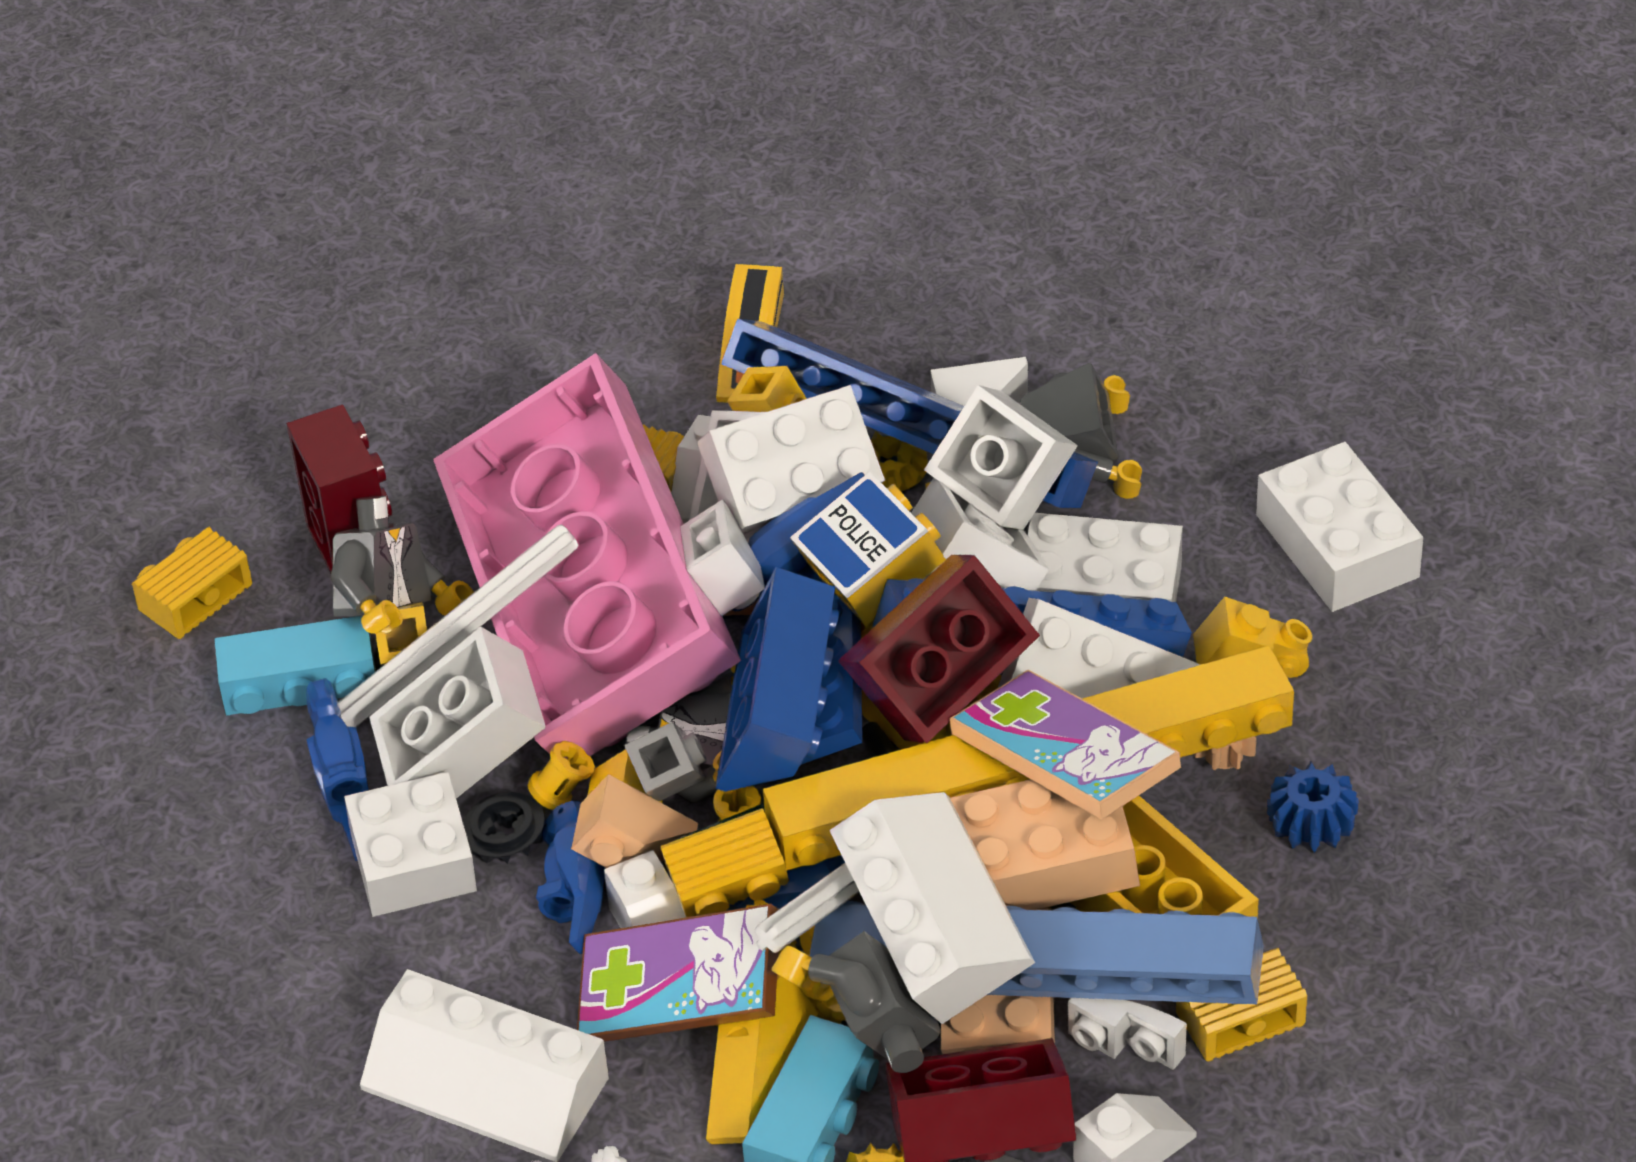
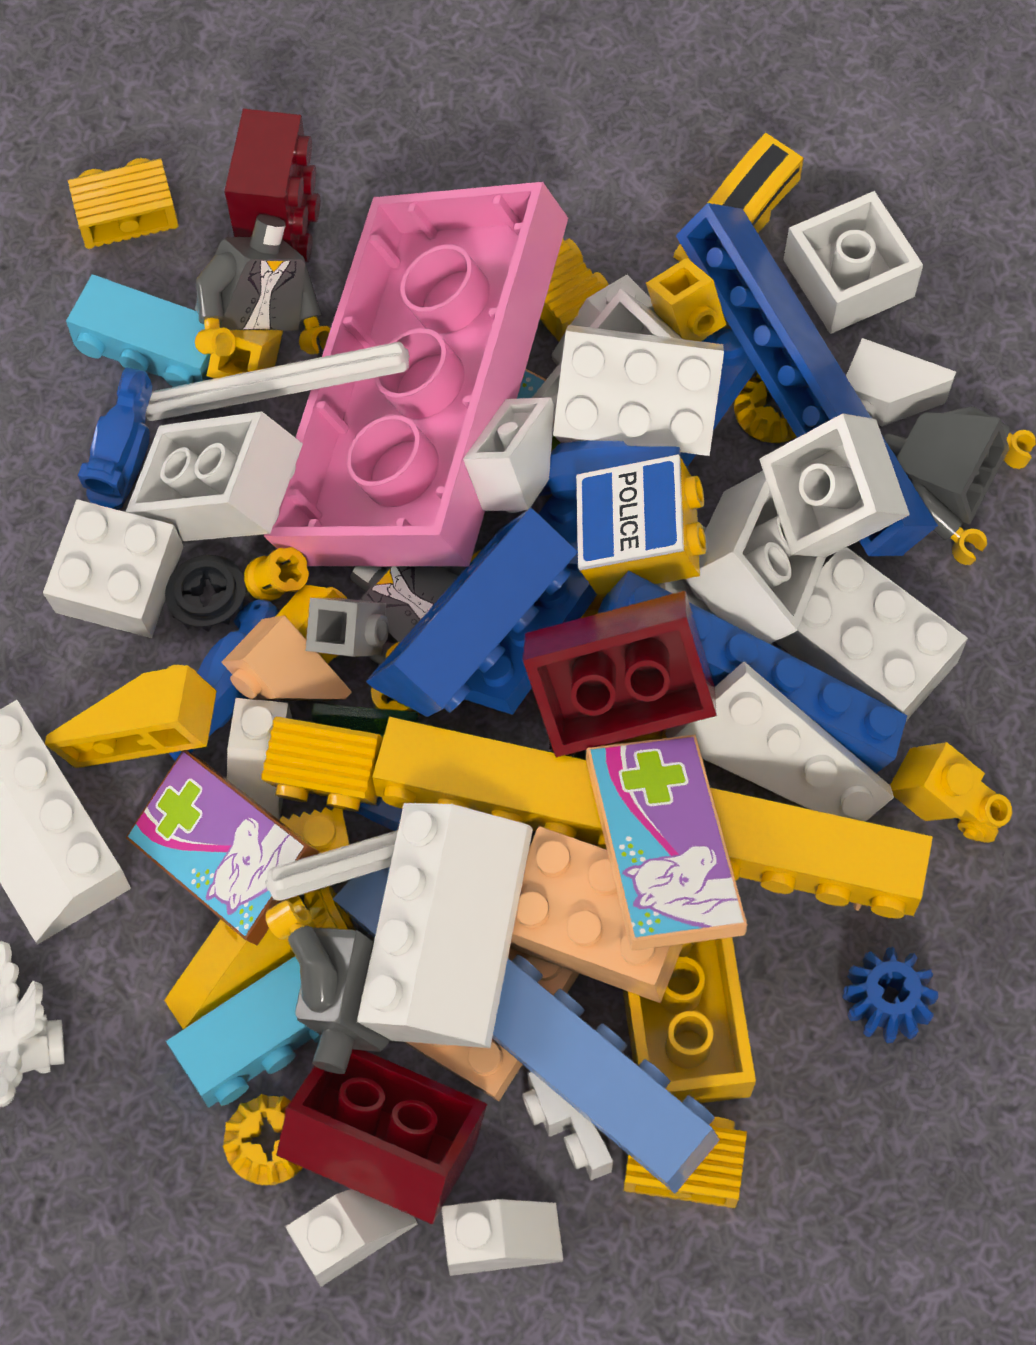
camera: 30 degrees right, 20 degrees up
(531, 928) = (143, 718): none -> yellow slope
(880, 320) = (852, 262): none -> white brick

